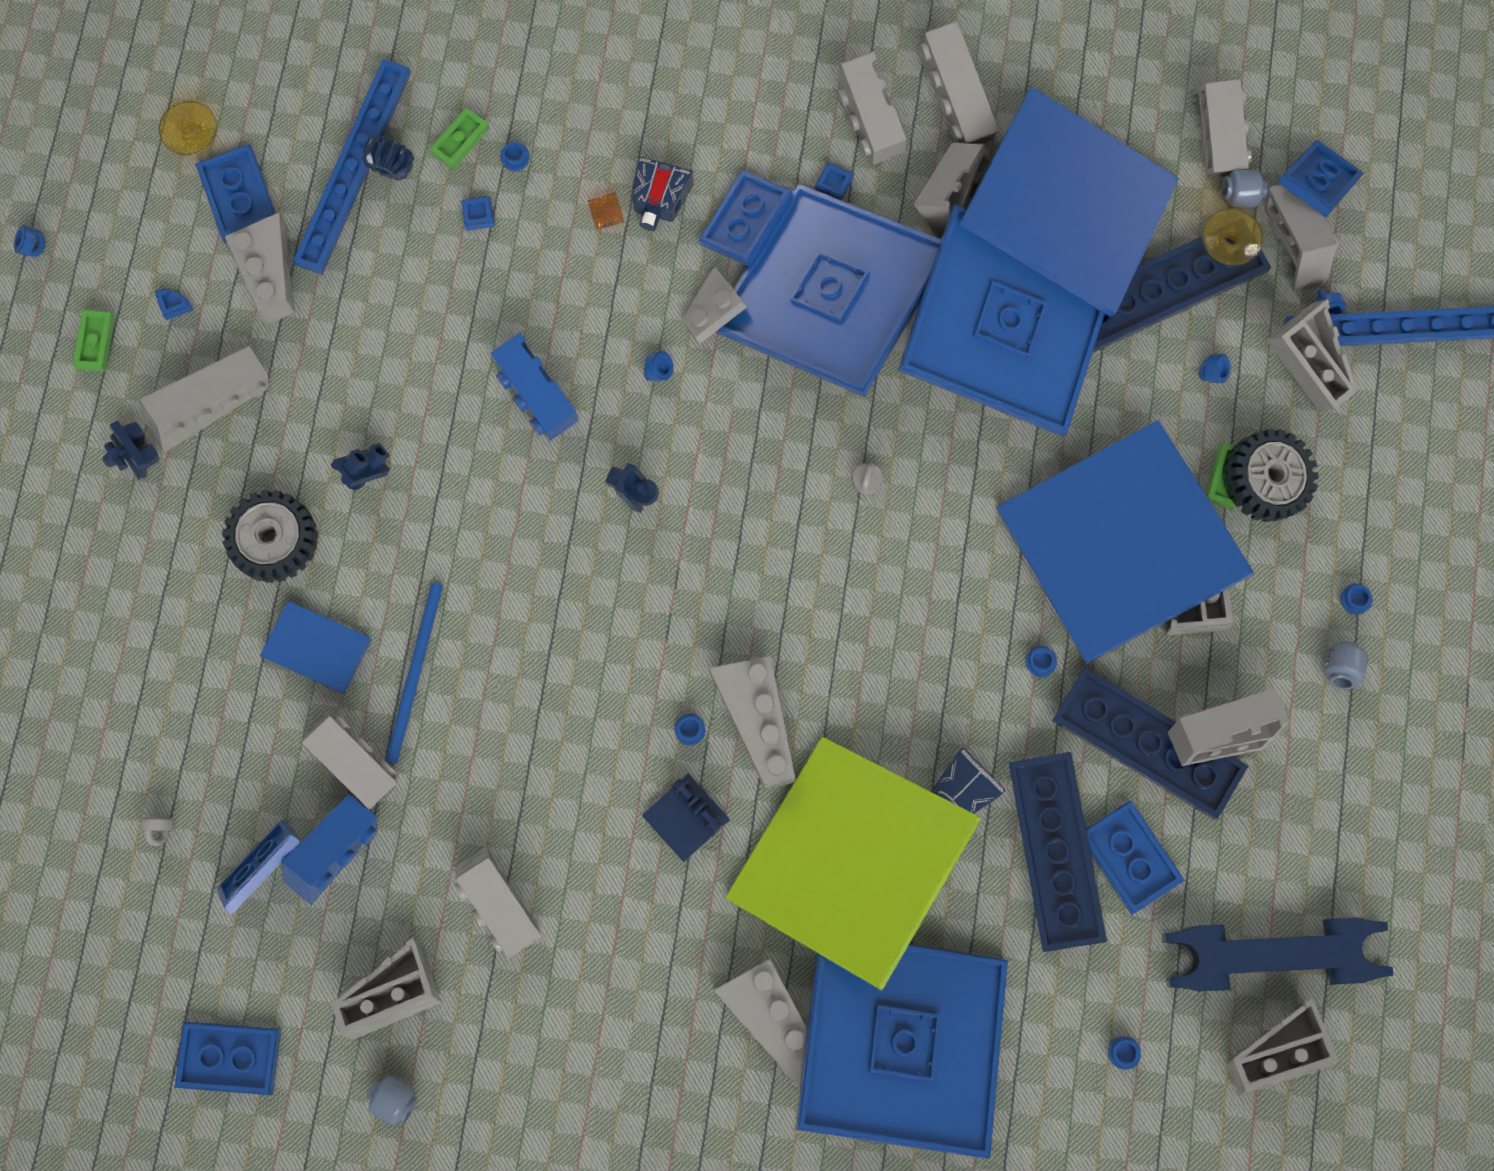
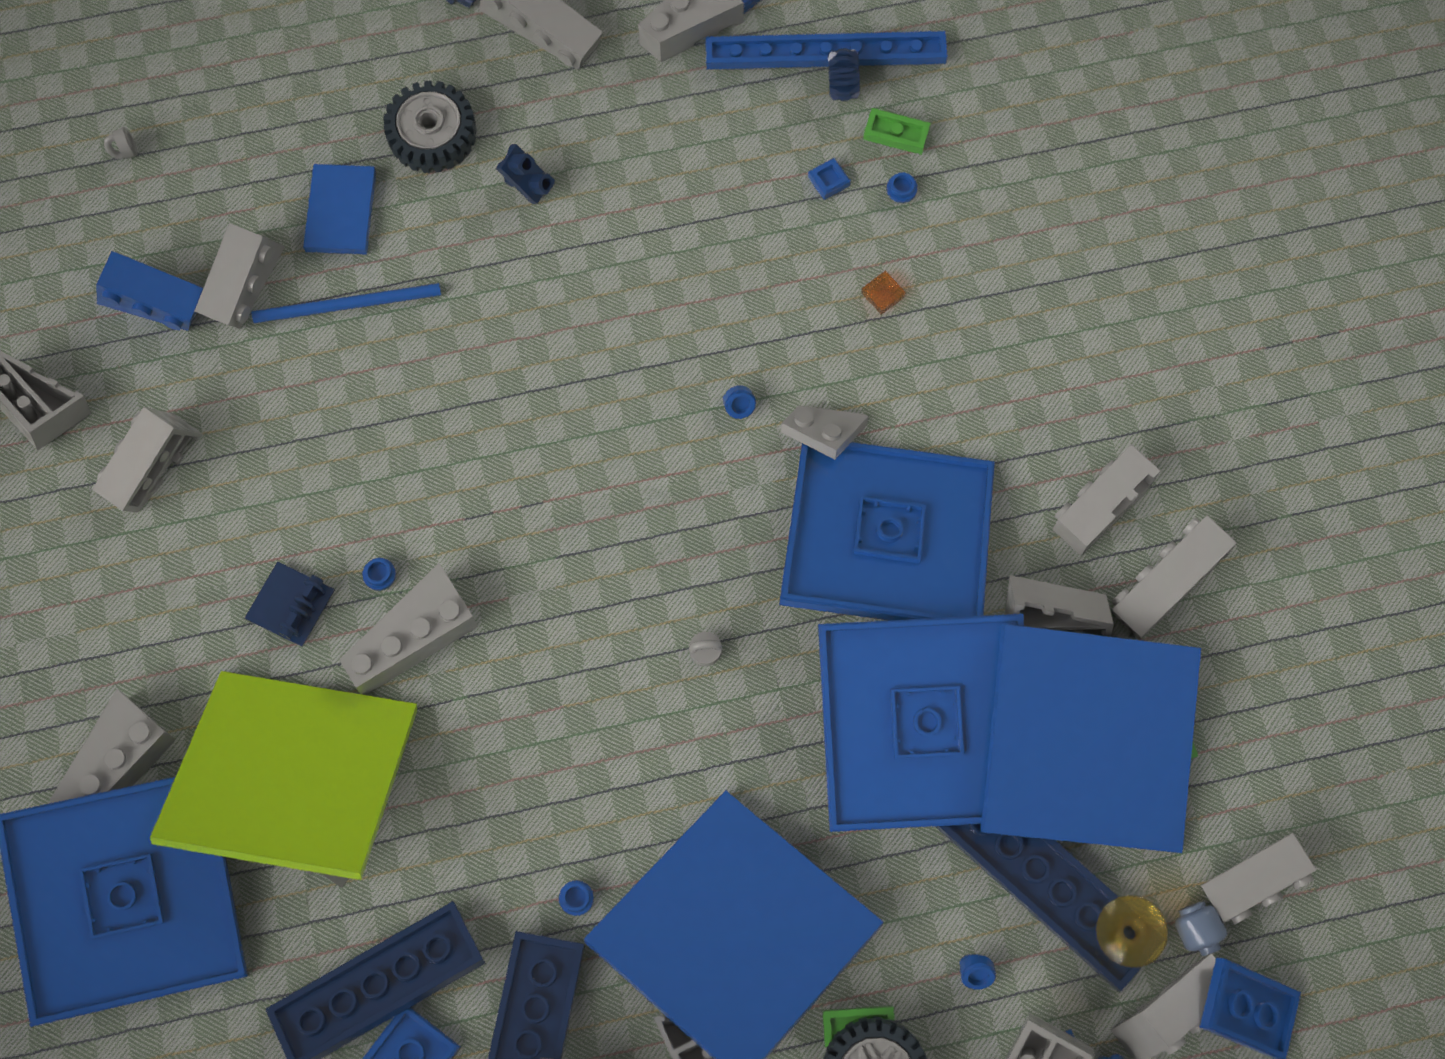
camera: 65 degrees right, 5 degrees down
(257, 865) = (110, 238): blue tile -> none
(533, 388) = (666, 293): blue wedge -> none
(632, 487) = (599, 421): dark blue hips -> none
(659, 191) = (923, 332): dark blue torso -> none
(745, 217) = (934, 425): blue tile -> none
(834, 181) = (1014, 497): blue tile -> none
(967, 784) = (410, 865): dark blue torso -> none

